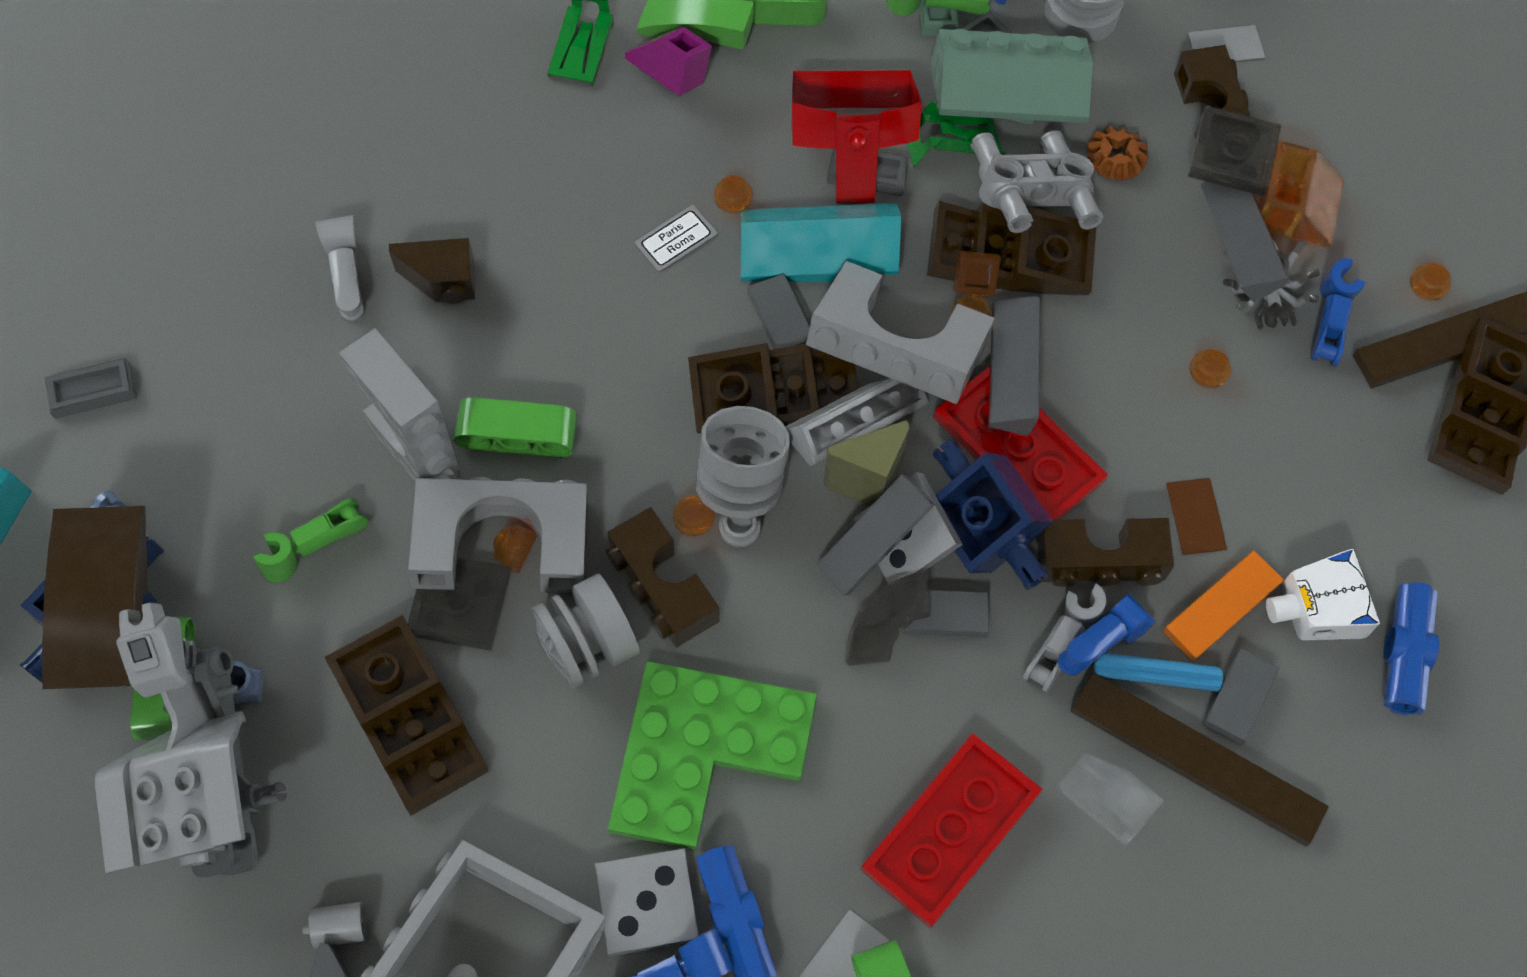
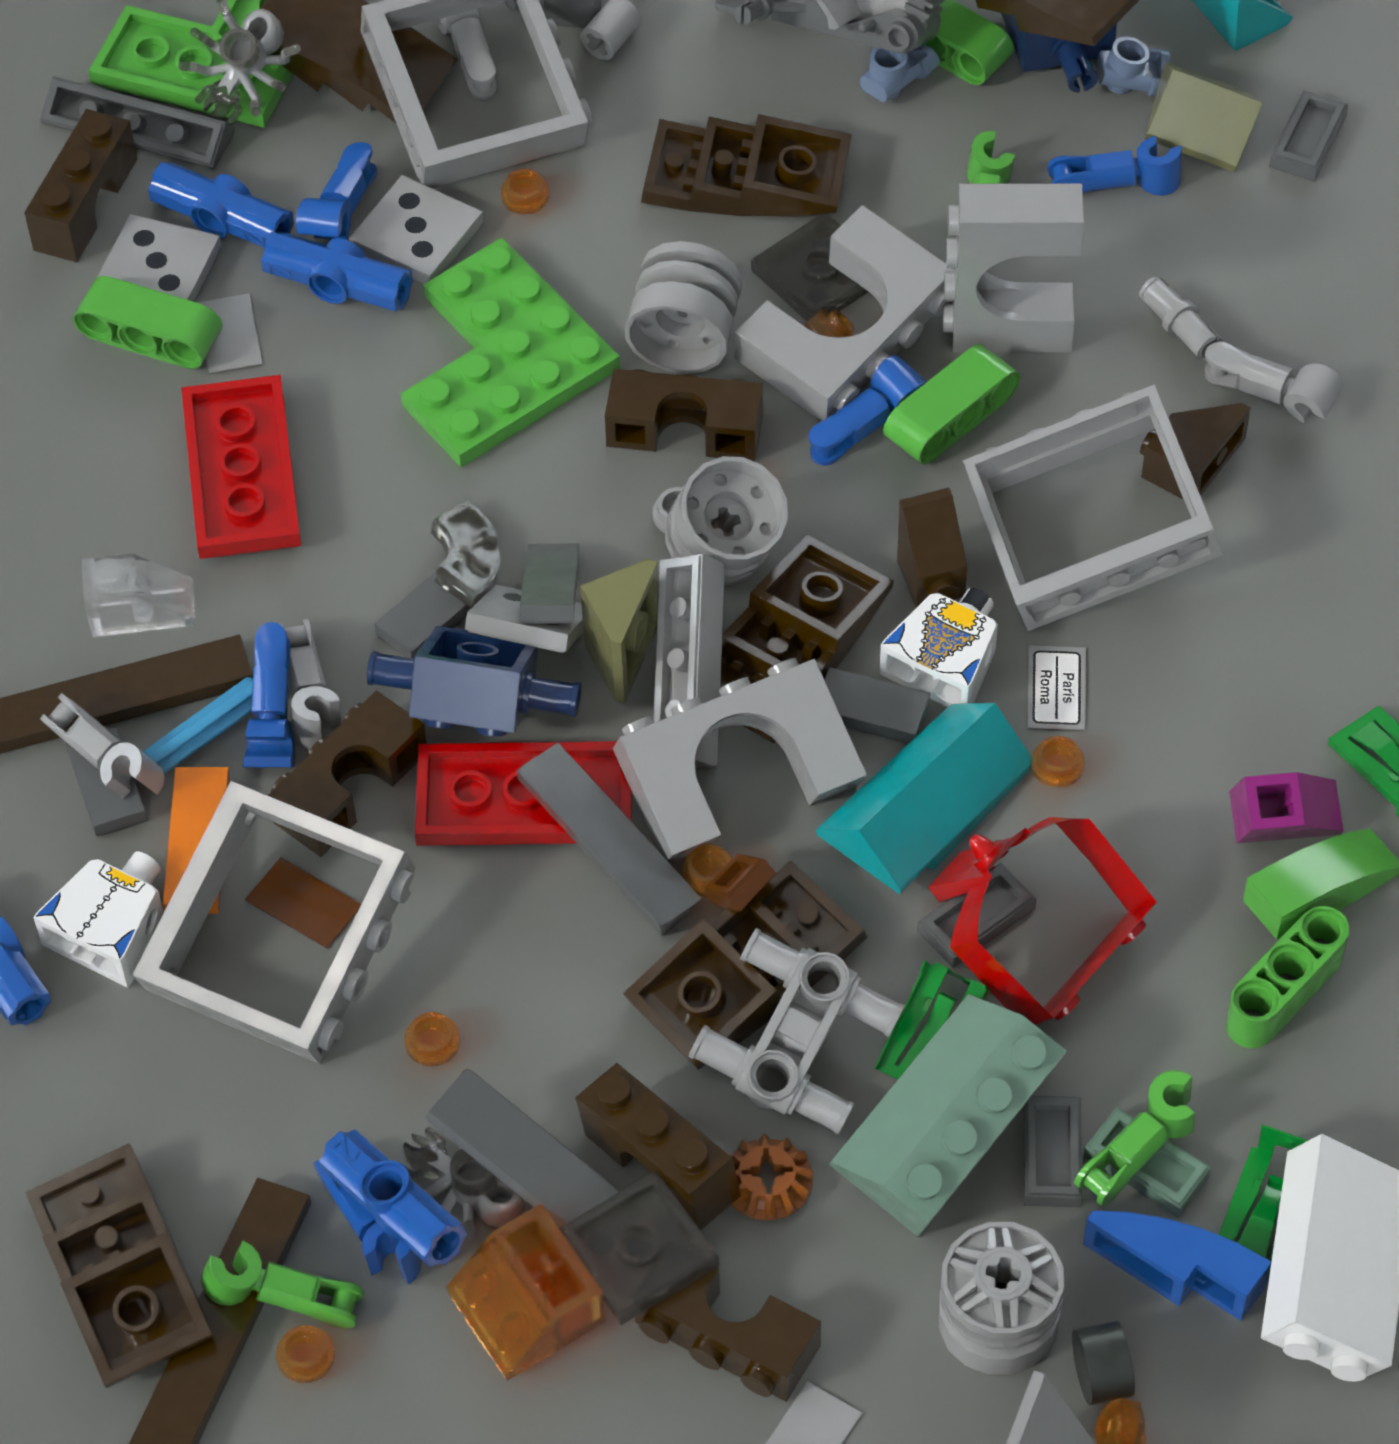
camera: 135 degrees right, 10 degrees down
(123, 450) = (1202, 116): none -> olive slope
(218, 472) = (1119, 169): none -> blue piece
(327, 349) = (1178, 316): none -> light grey pin
(533, 463) = (838, 433): none -> blue piece
(550, 852) = (524, 192): none -> clear orange plate
(578, 226) = (1115, 570): none -> light grey window
(652, 345) = (931, 546): none -> dark brown slope
(710, 297) = (943, 647): none -> white torso
(1169, 196) = (635, 1122): none -> dark brown arch
(1185, 511) = (200, 886): none -> window
(1239, 726) = (104, 750): none -> light grey piece
(1334, 298) = (393, 1198): none -> blue piece
(1421, 312) = (280, 1287): none -> bright green piece

